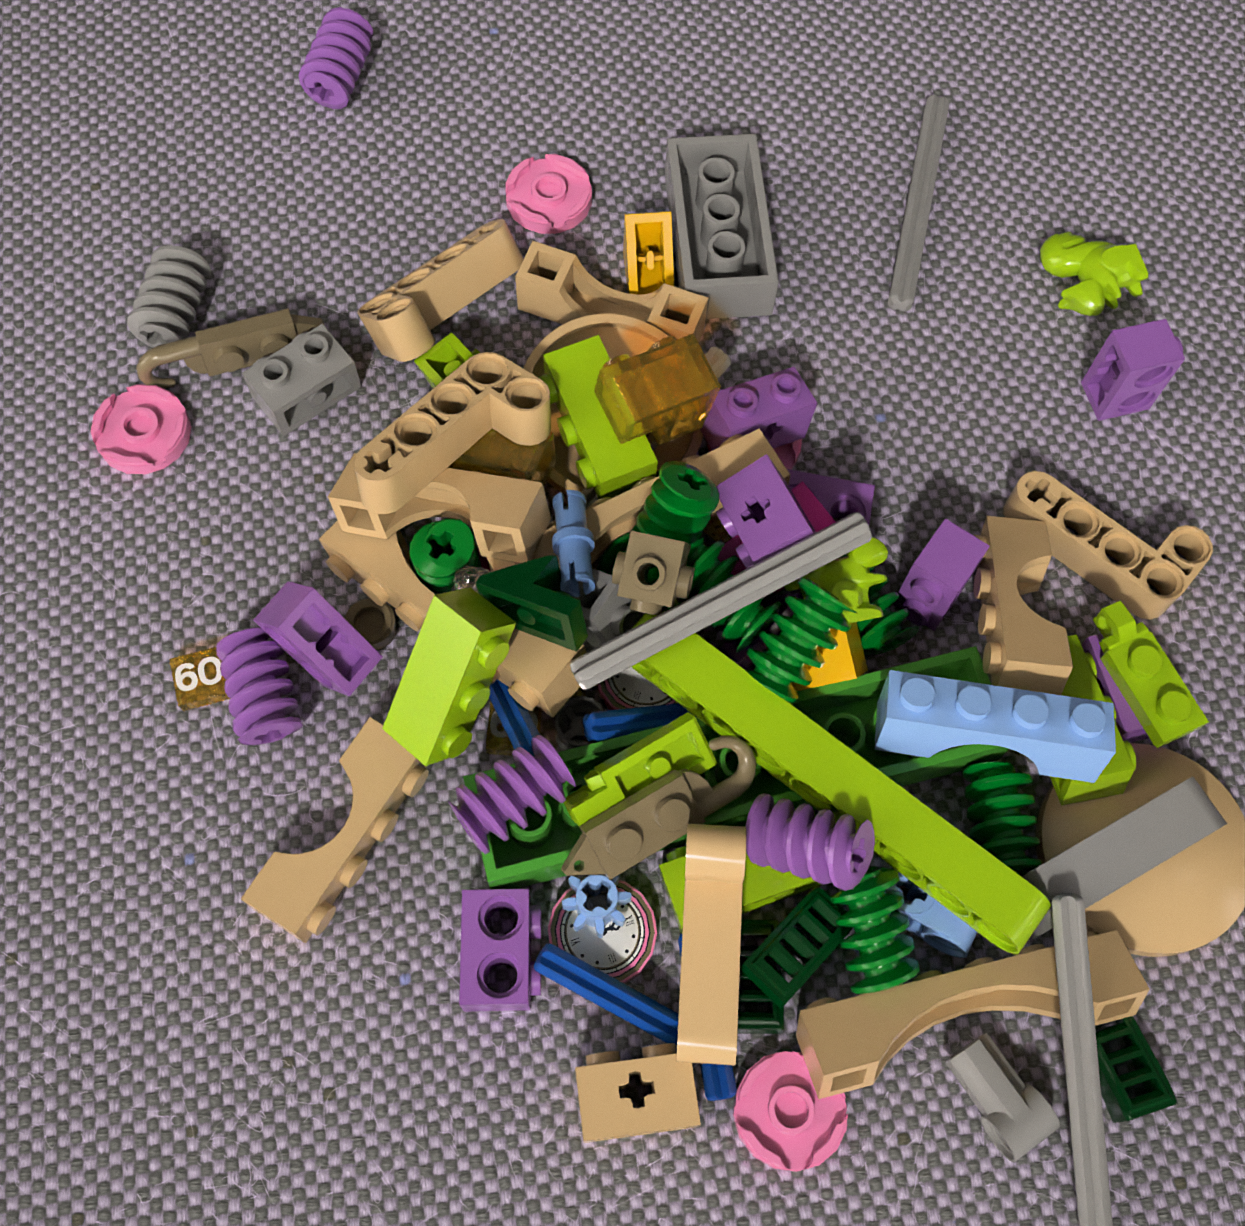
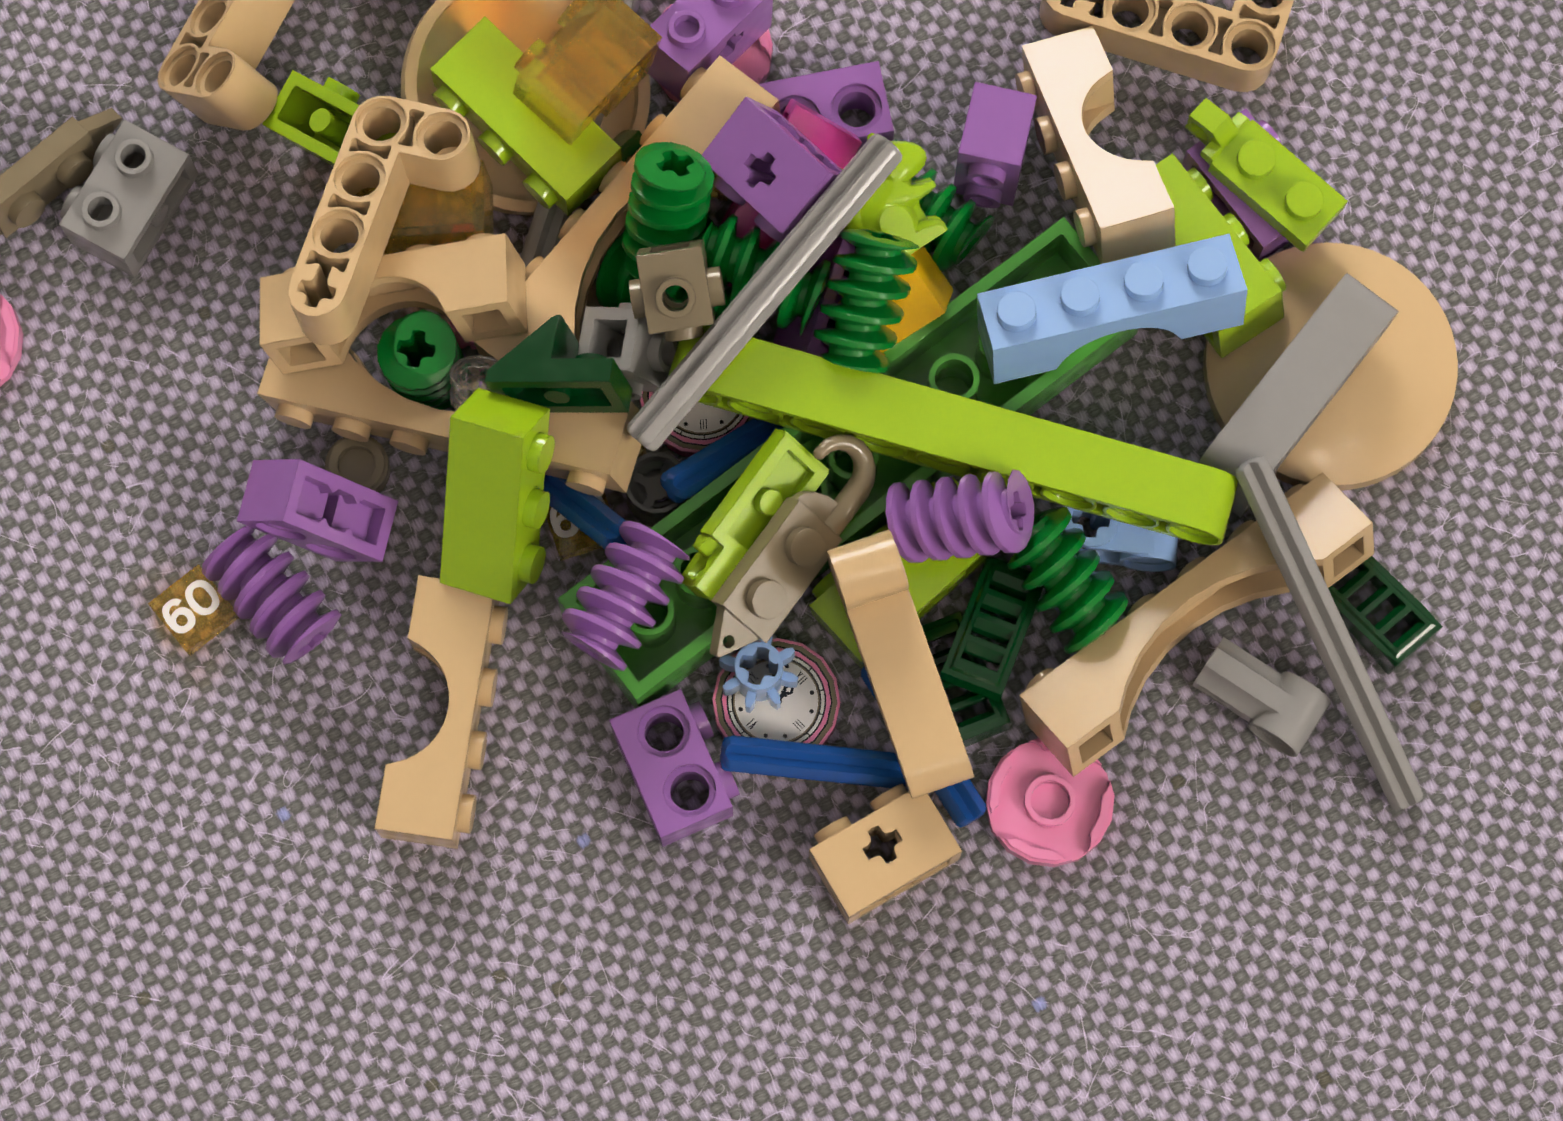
camera: 20 degrees left, 10 degrees up
(573, 543) = (568, 287): medium blue pin -> none
(999, 814) = (1159, 397): green piece -> none

